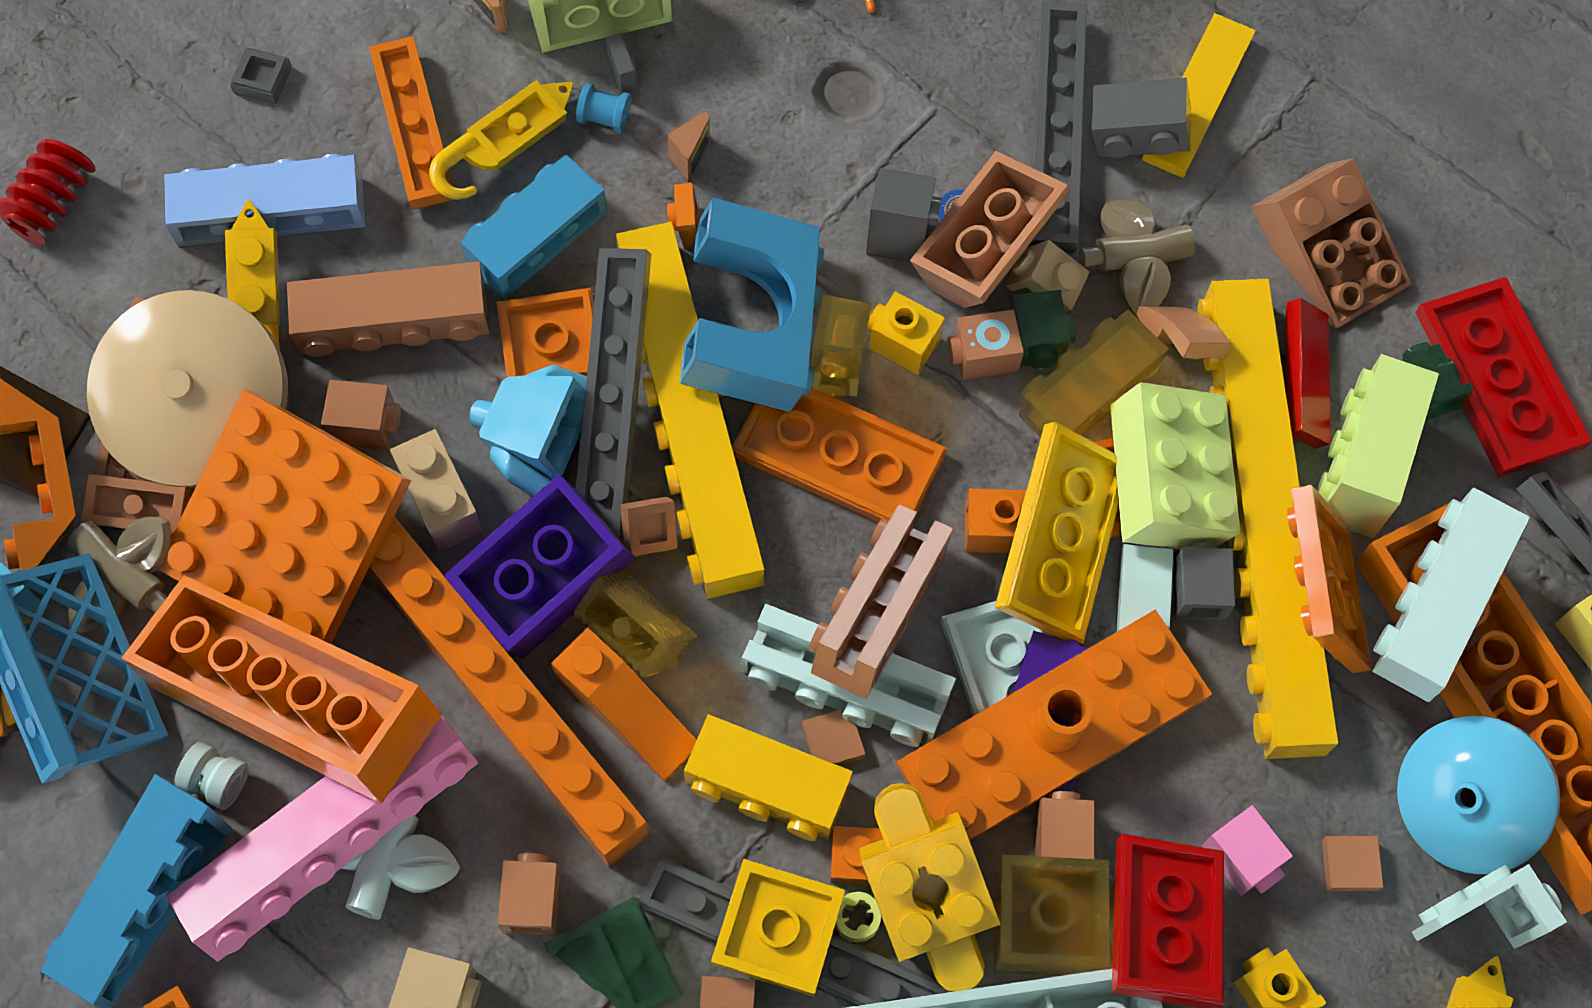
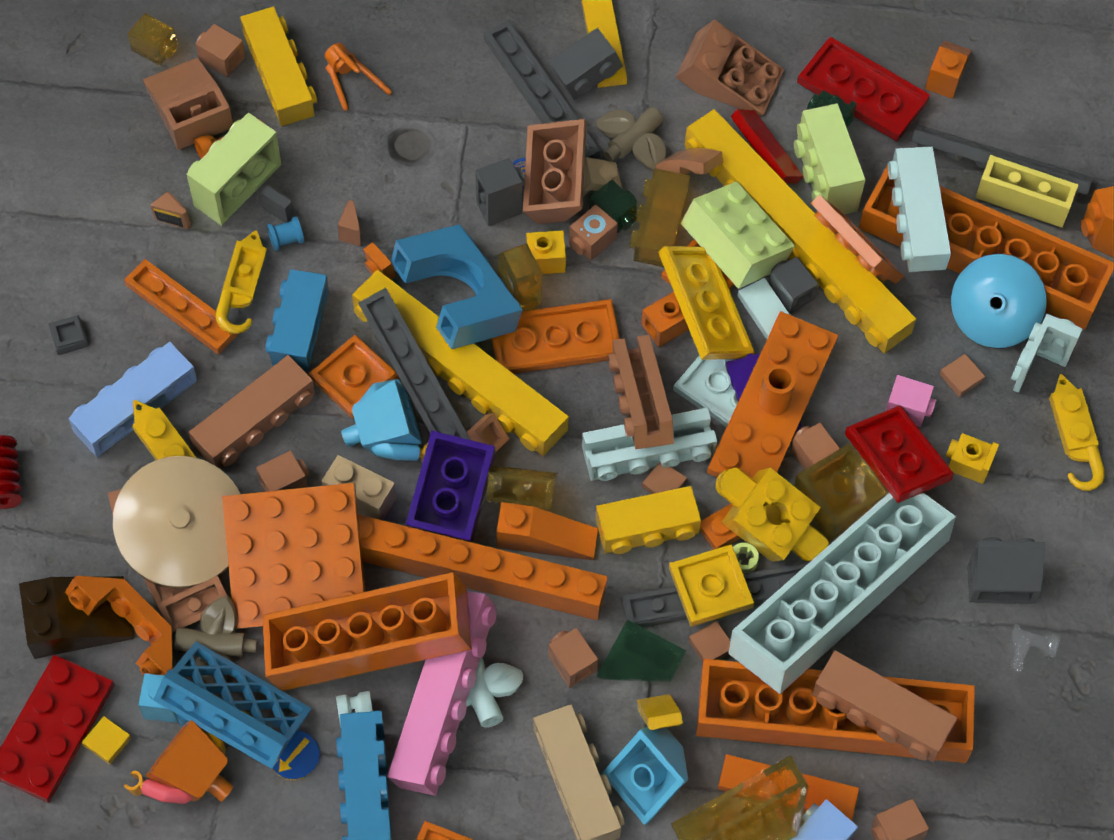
camera: 35 degrees left, 5 degrees down
(105, 786) = (298, 757): none -> blue piece

